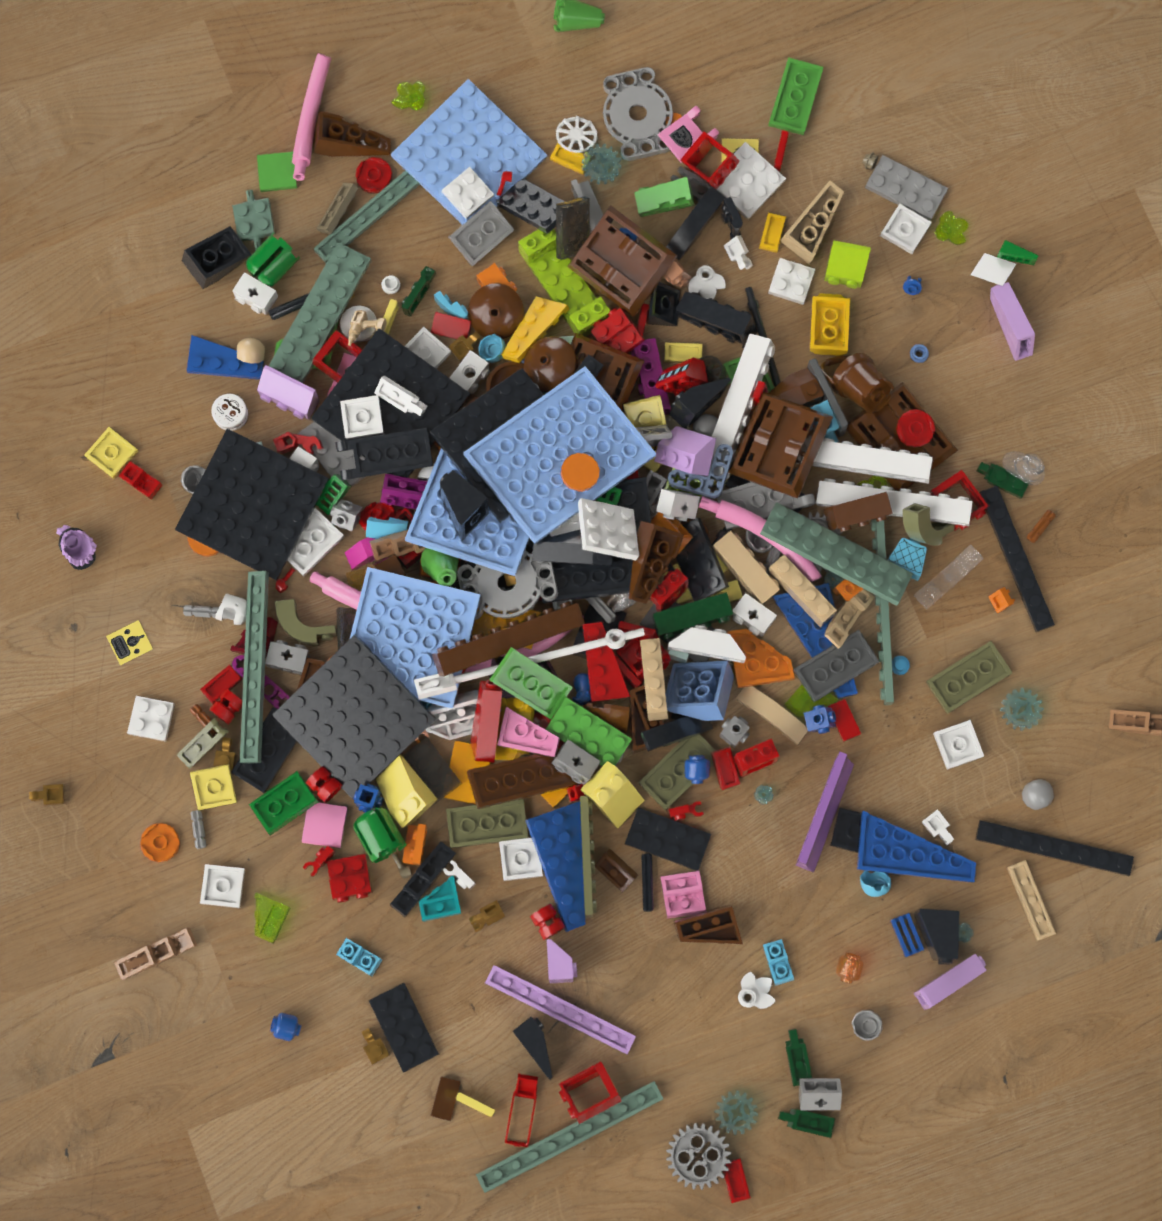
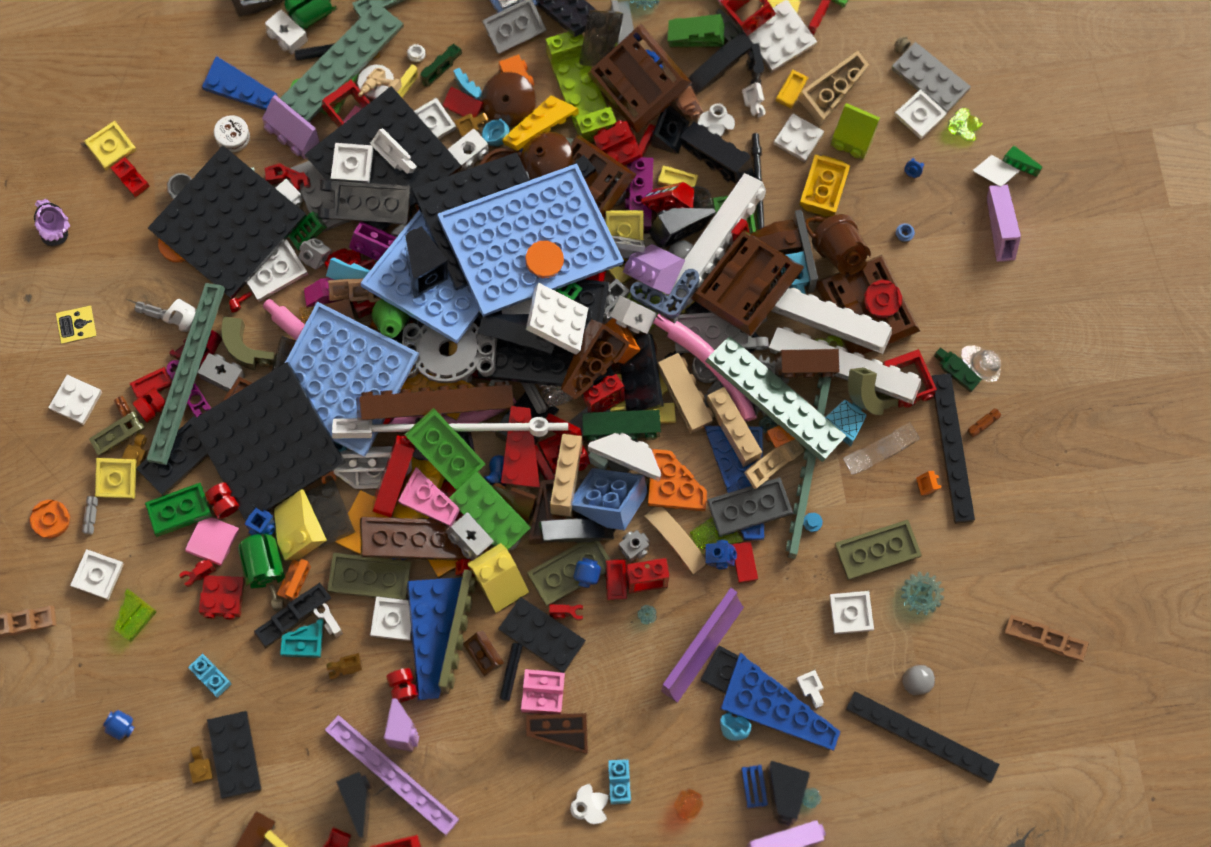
camera: 10 degrees right, 5 degrees down
(250, 350) = (267, 82): tan hair -> none
(757, 625) = (685, 450): white brick -> none
(1031, 900) = (886, 783): tan tile -> none

